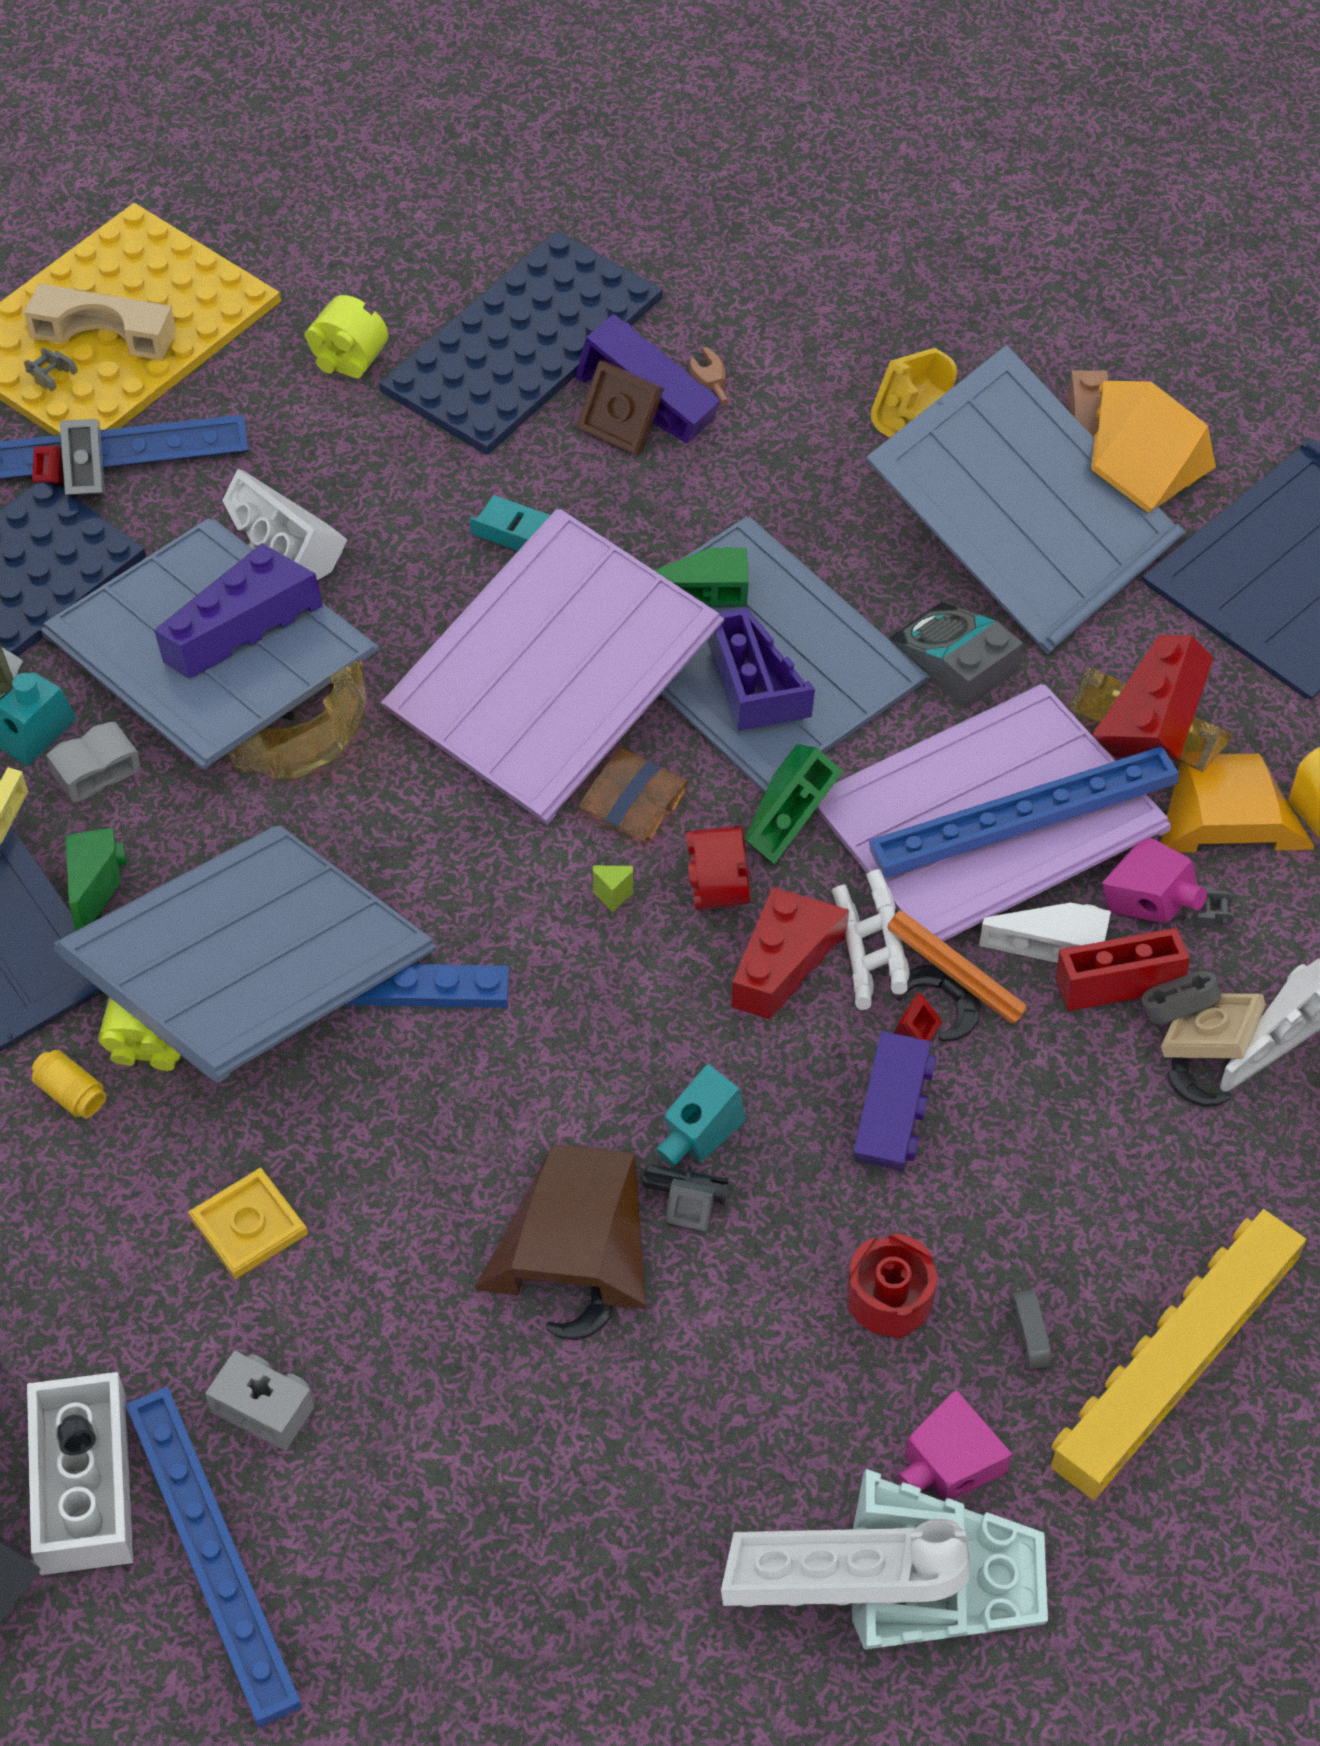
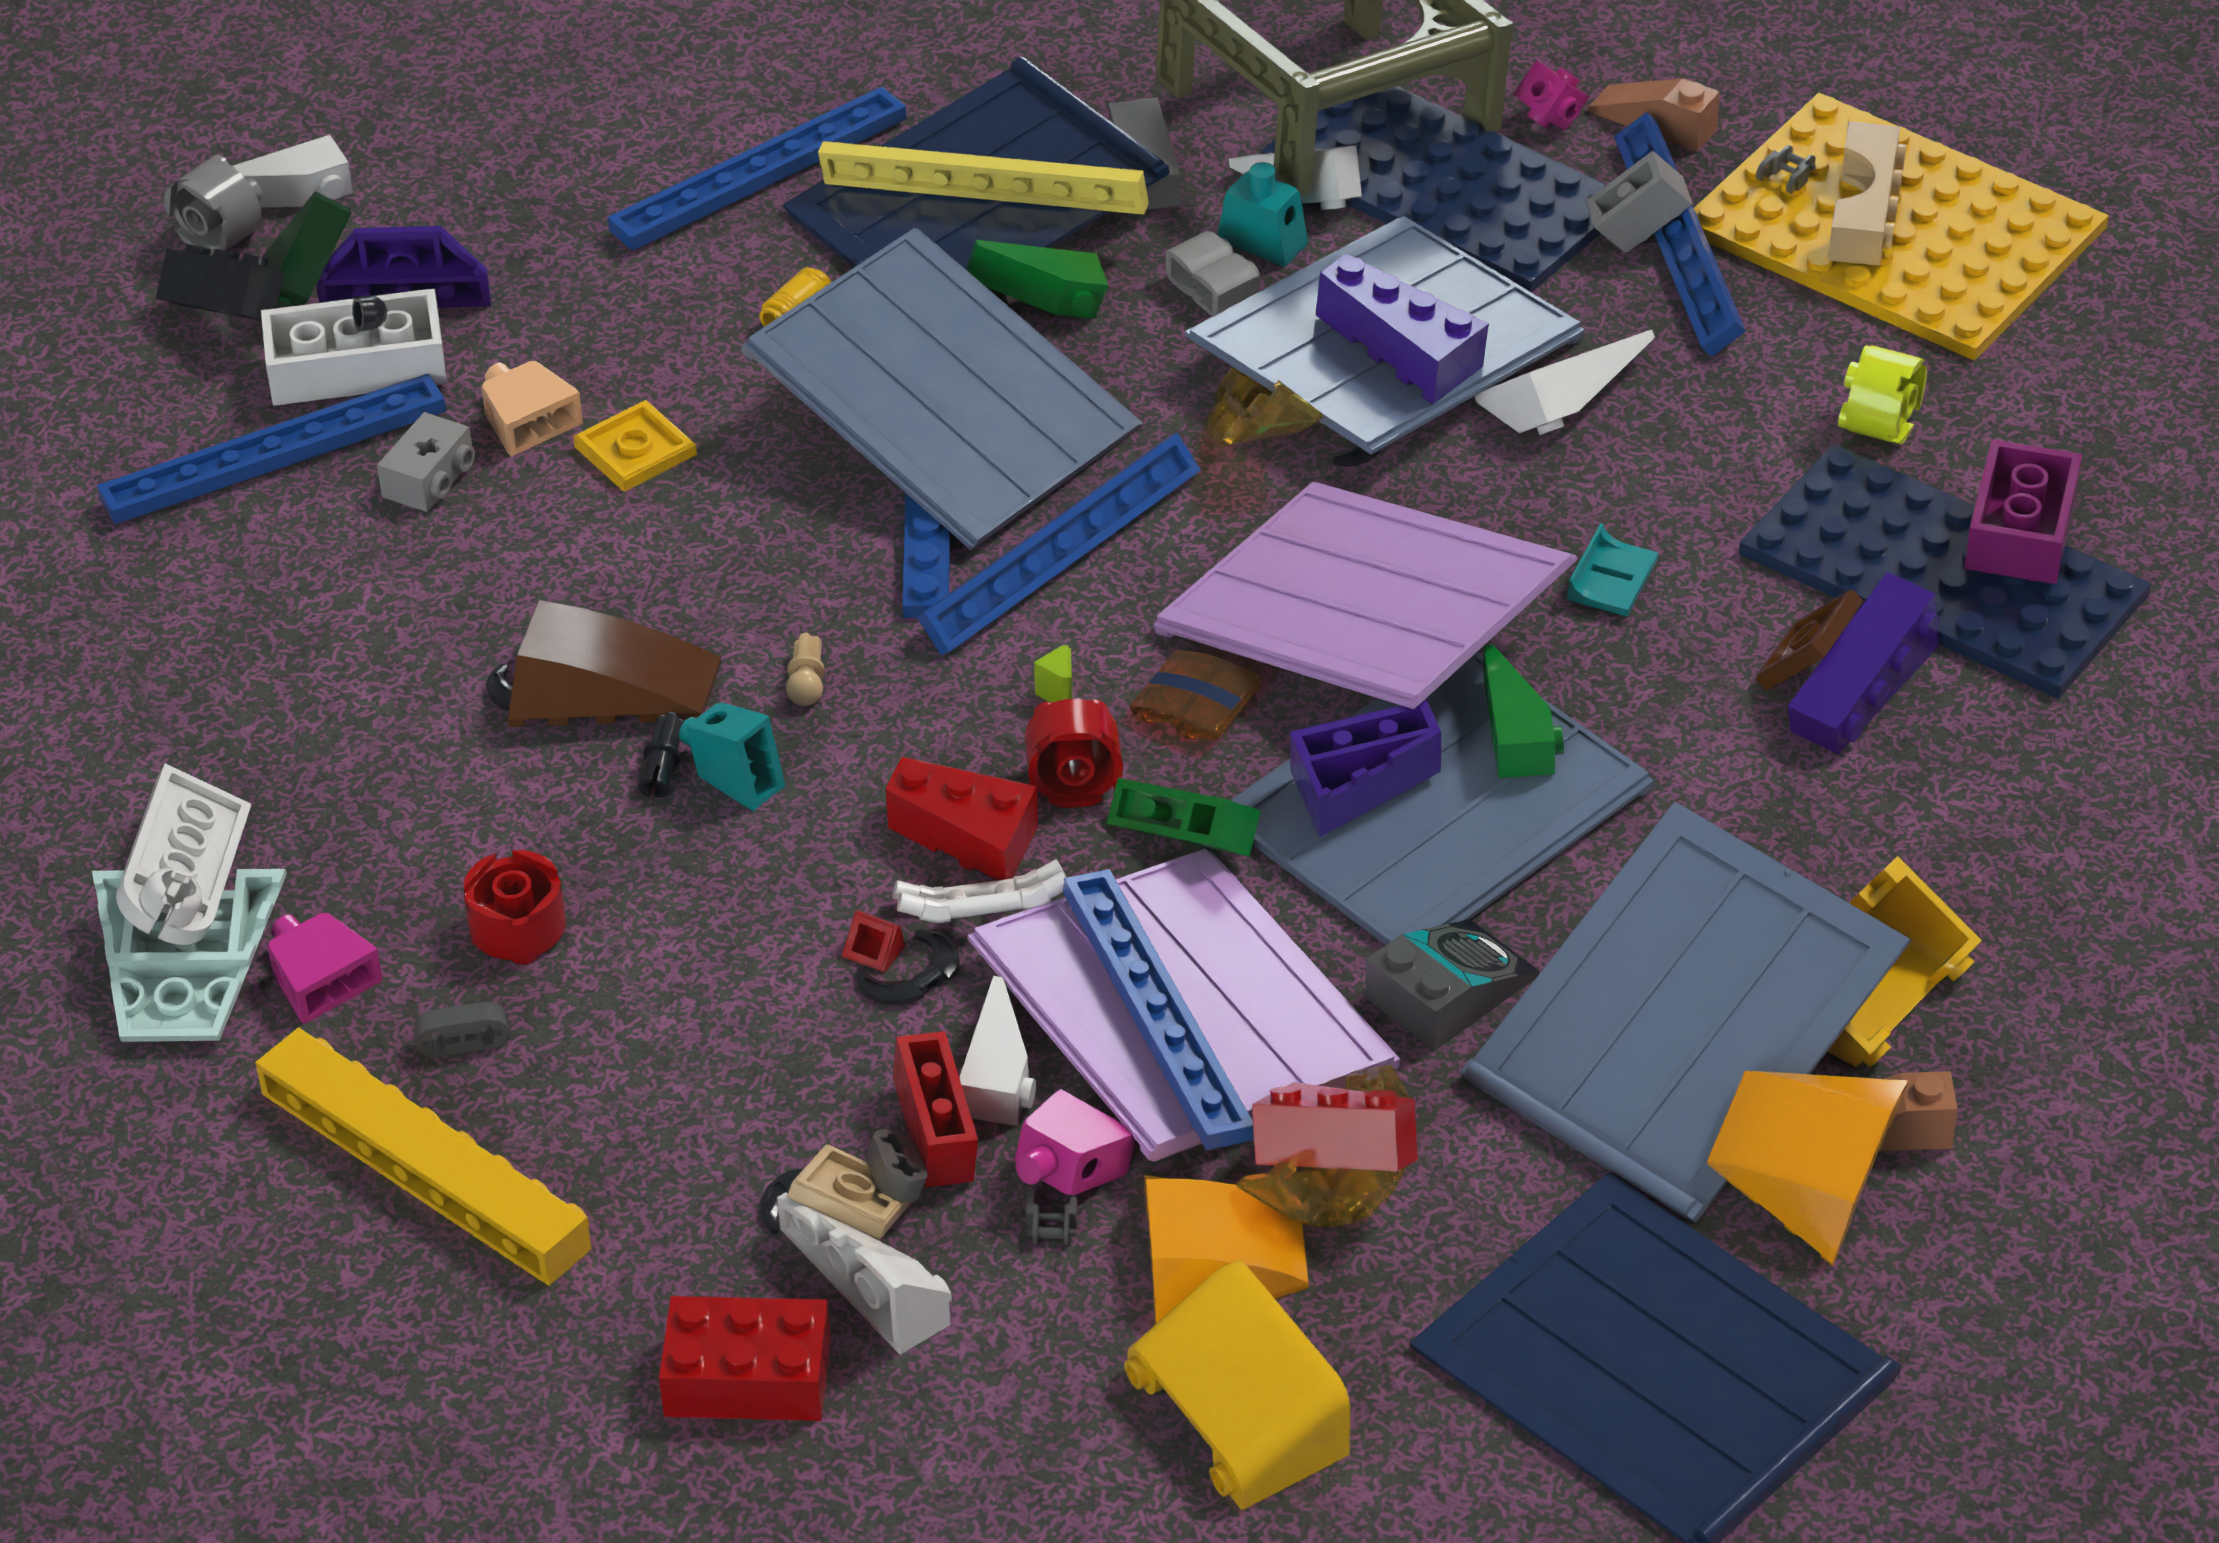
camera: 90 degrees right, 10 degrees down
(184, 1313) = (528, 405): none -> light nougat torso
(450, 890) = (1058, 544): none -> blue plate
(507, 267) = (2023, 511): none -> magenta brick
(603, 1074) = (805, 671): none -> tan axle
(690, 1205) = (630, 753): flat silver tile -> none
(712, 376) = (1909, 741): nougat hand -> none
(894, 1101) = (757, 908): dark purple wedge -> none
(956, 967) = (938, 960): orange axle -> none

